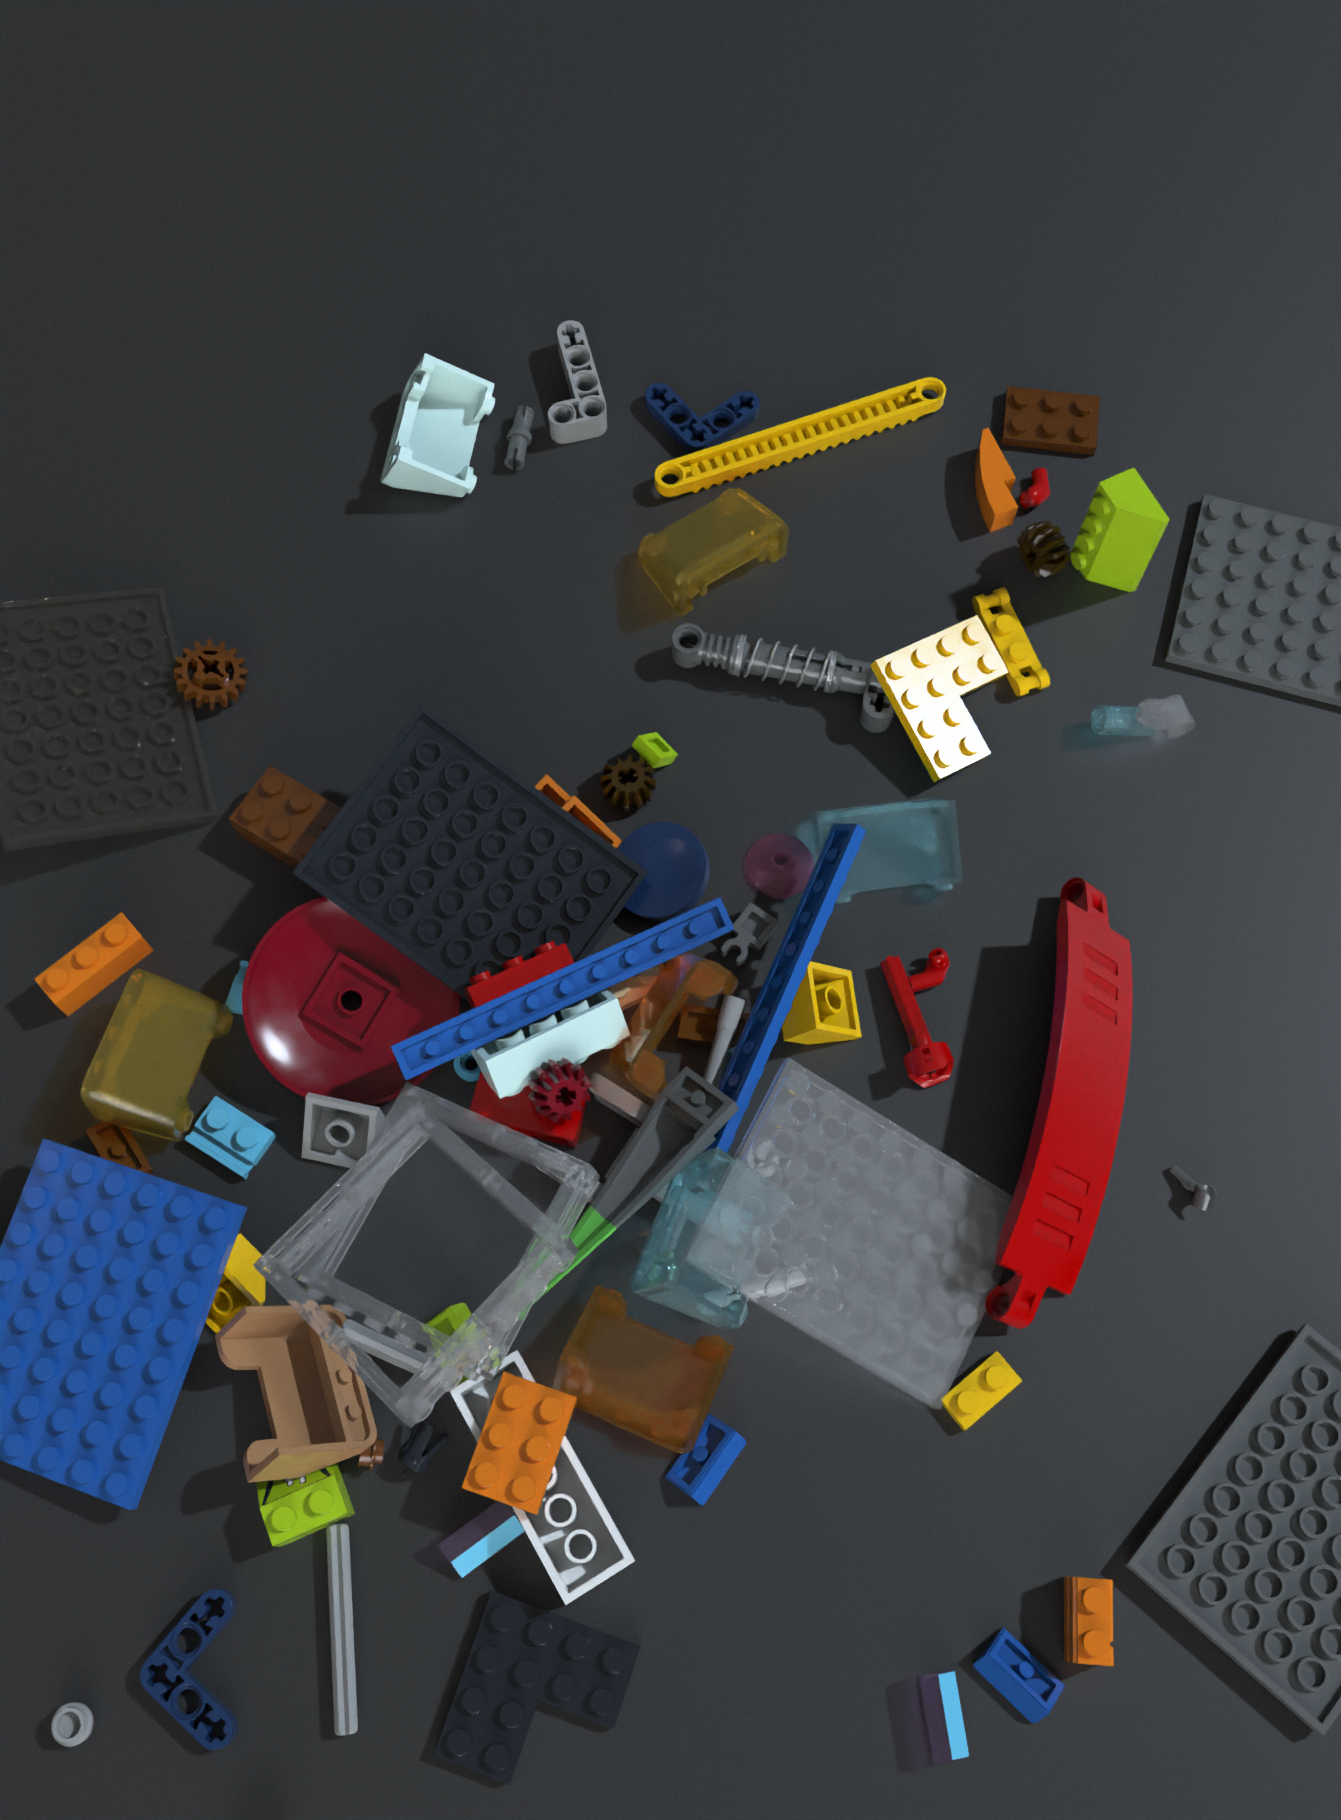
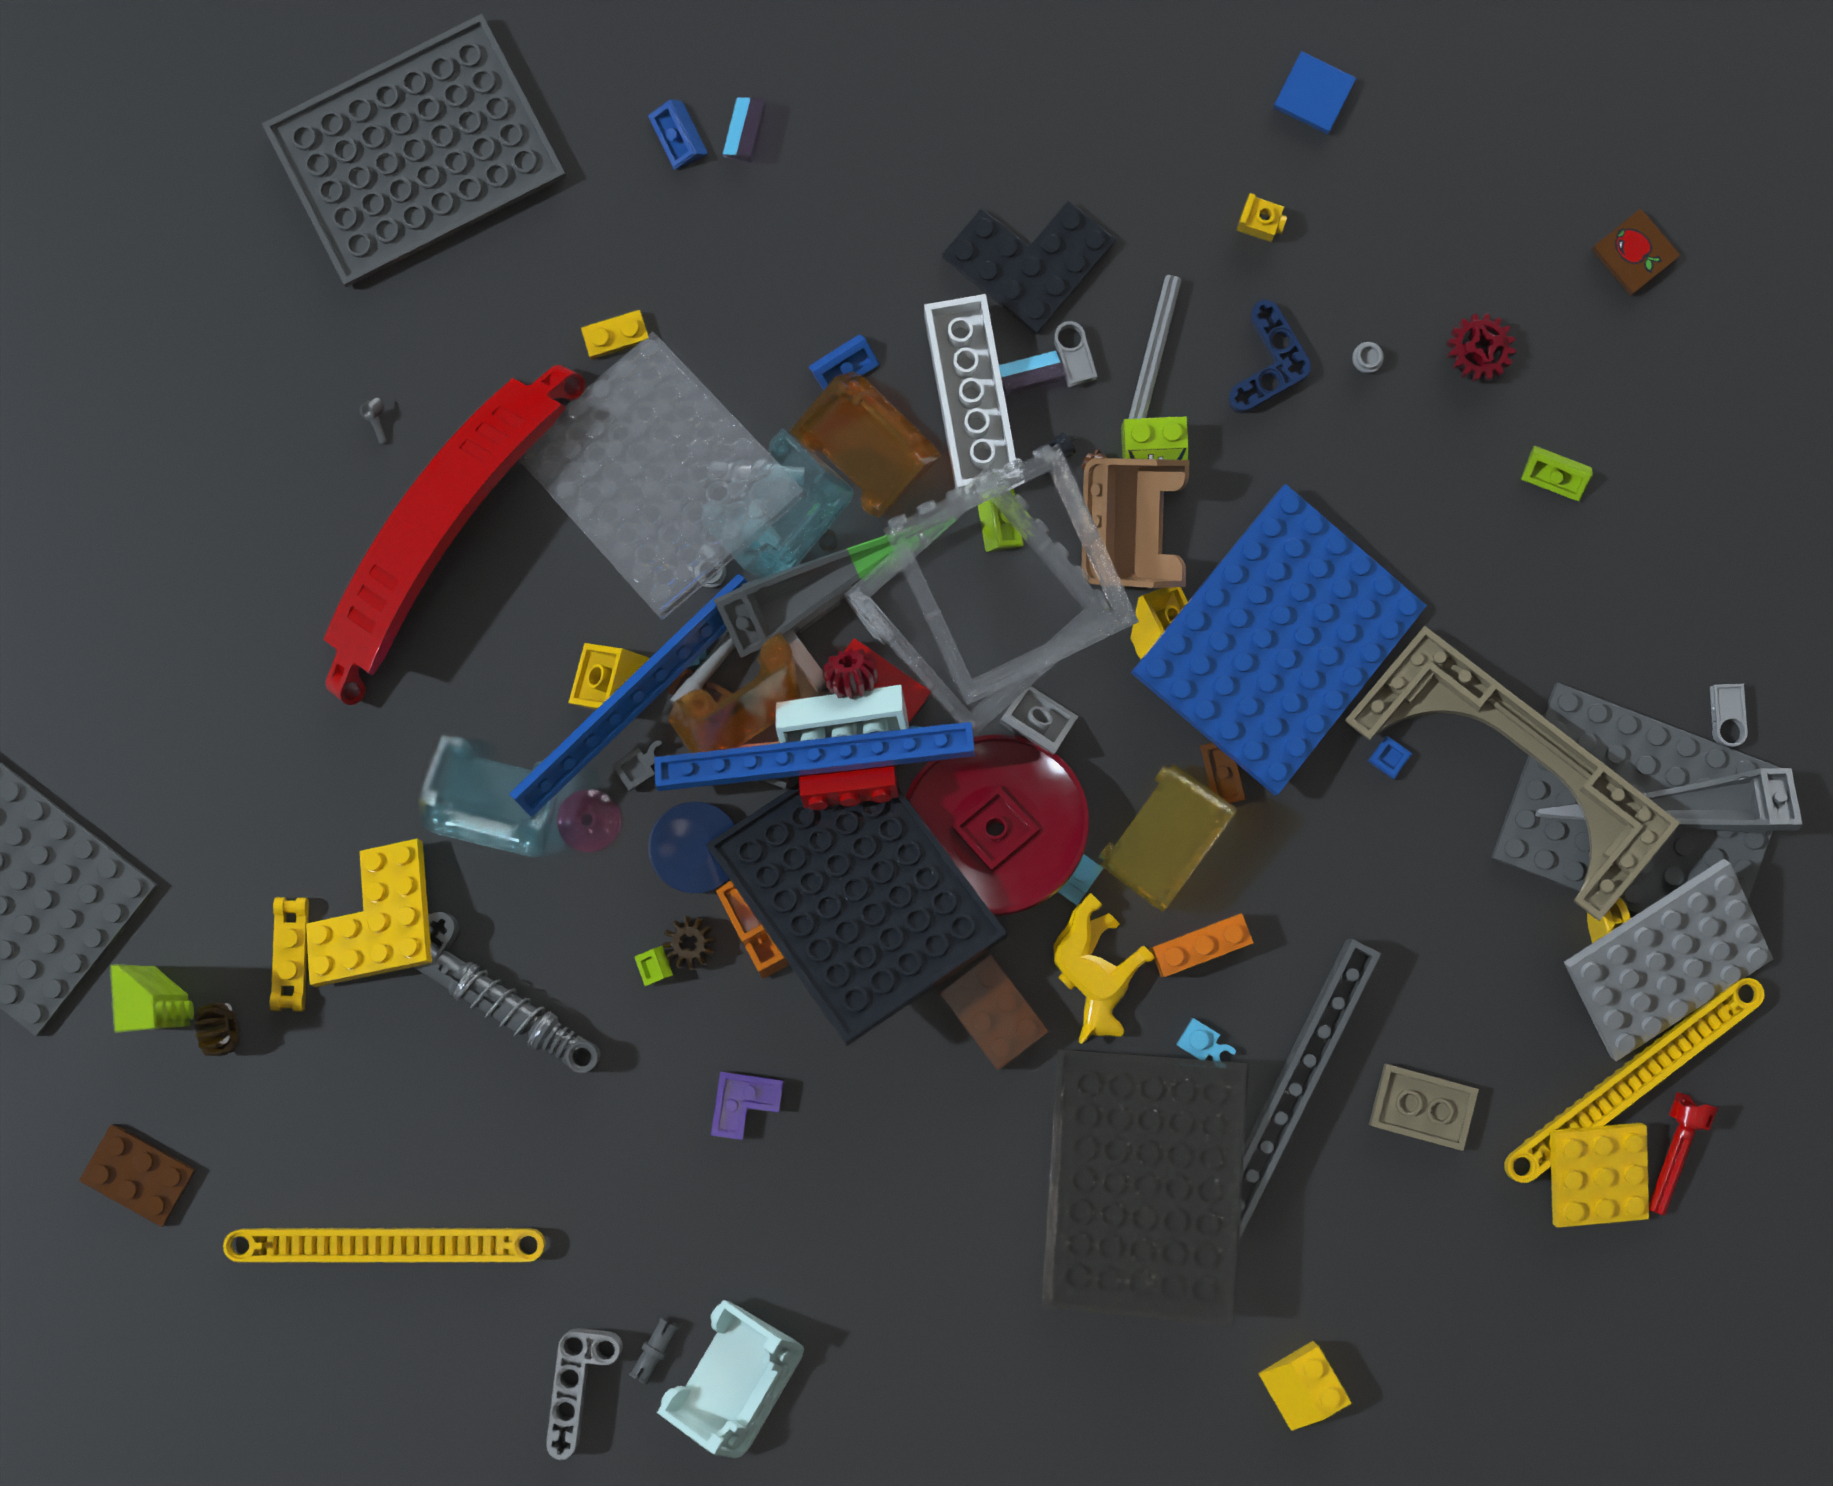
camera: 160 degrees left, 15 degrees up
(70, 877) = (1201, 1041): none -> medium azure plate
(200, 896) = (1093, 976): none -> yellow animal
(210, 674) = (1035, 1186): reddish brown gear -> none
(230, 1137) = (1130, 754): medium azure plate -> none
(385, 1347) = (1058, 532): light grey axle -> none
(431, 1572) = (1075, 361): none -> light grey piece
(520, 1443) = (978, 416): orange plate -> none
(523, 669) = (736, 1095): none -> dark purple plate
(703, 426) = (472, 1294): dark blue beam -> none
(710, 545) = (520, 1152): clear yellow windscreen -> none
(926, 1054) = (537, 631): red piece -> none
(934, 971) = (501, 672): red arm -> none
(994, 484) = (227, 1125): orange slope -> none
(1038, 491) = (187, 1099): red arm -> none
(1088, 1620) = (611, 147): orange brick -> none
(1118, 721) = (231, 836): clear light blue hinge -> none
(1167, 715) = (189, 822): clear piece -> none

